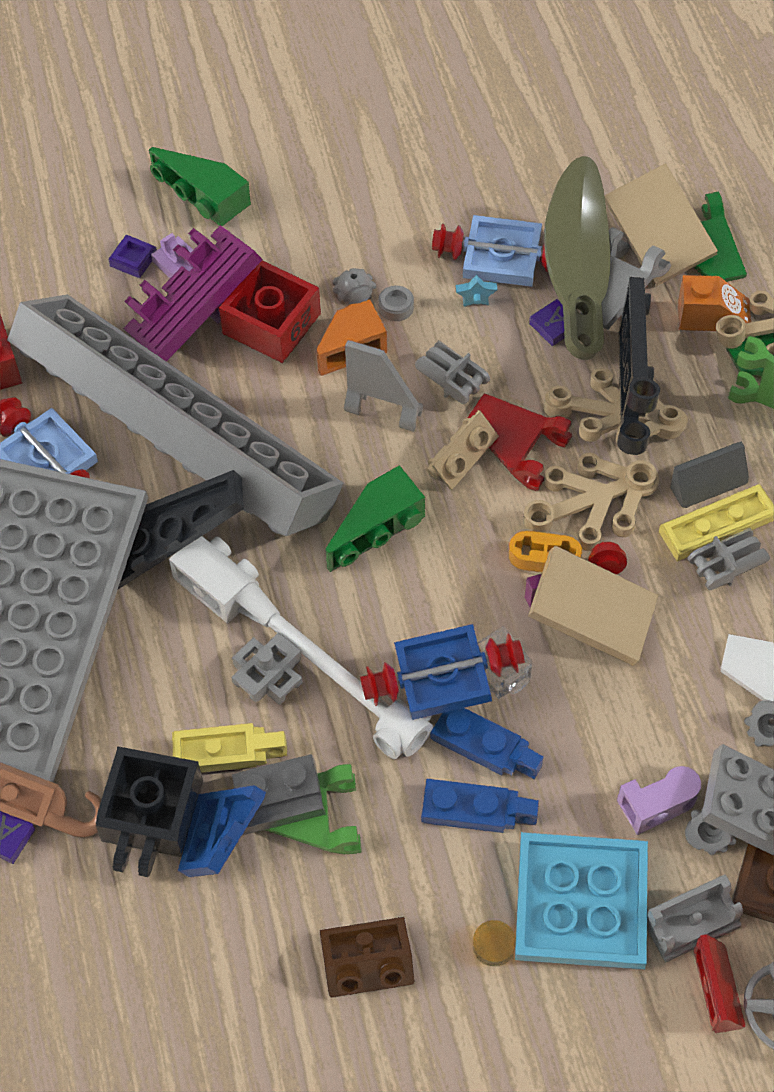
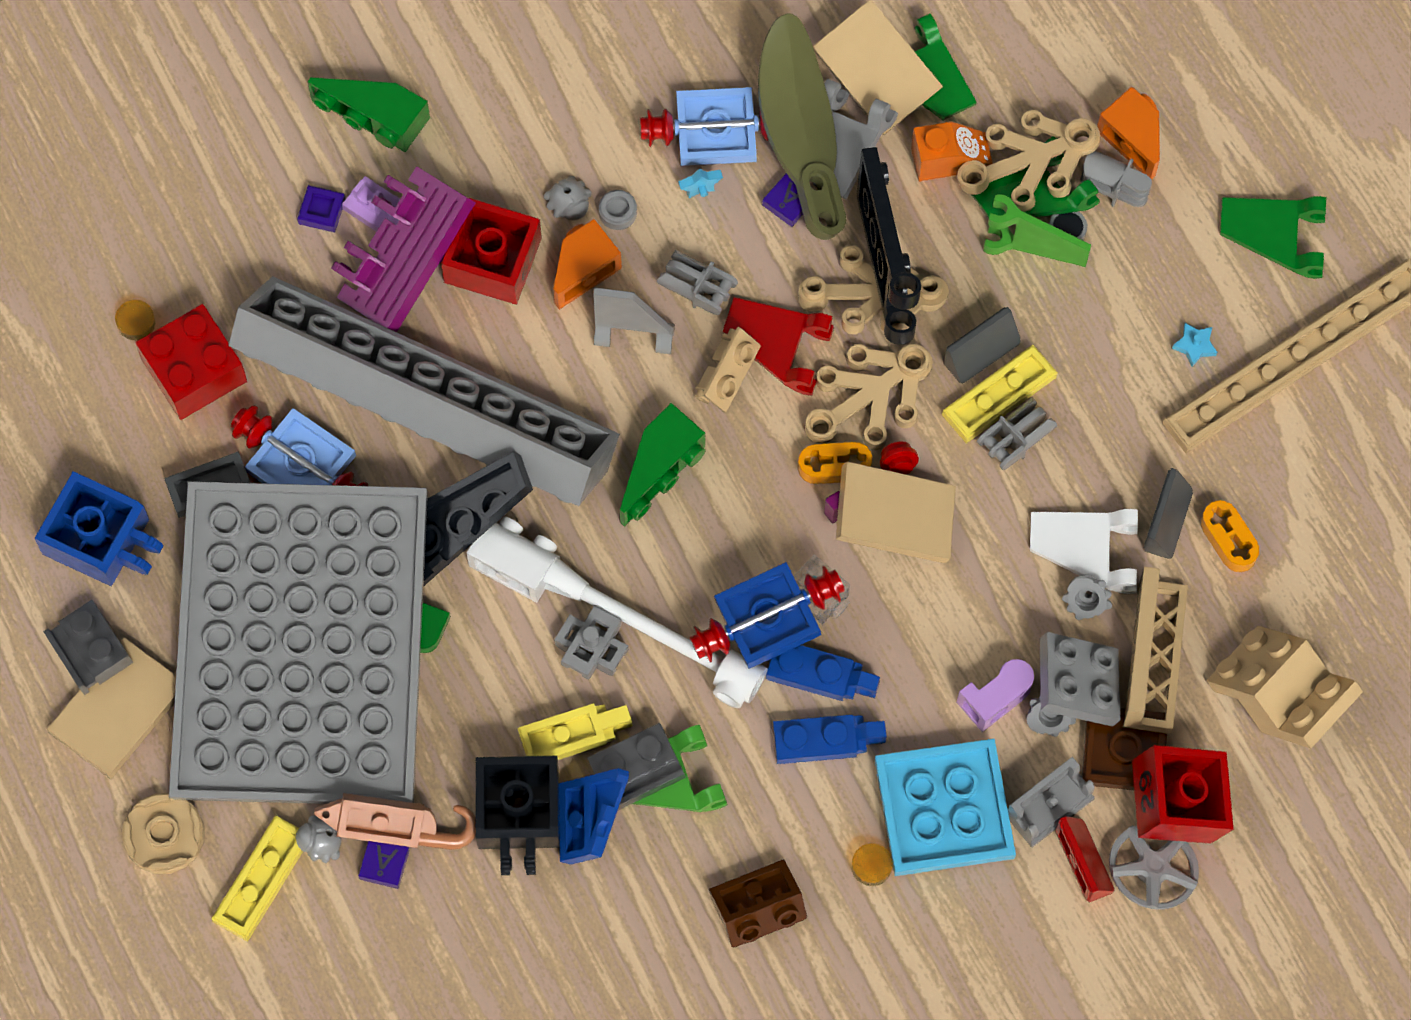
camera: 15 degrees left, 10 degrees up
(120, 624) = (433, 627): none -> green tile

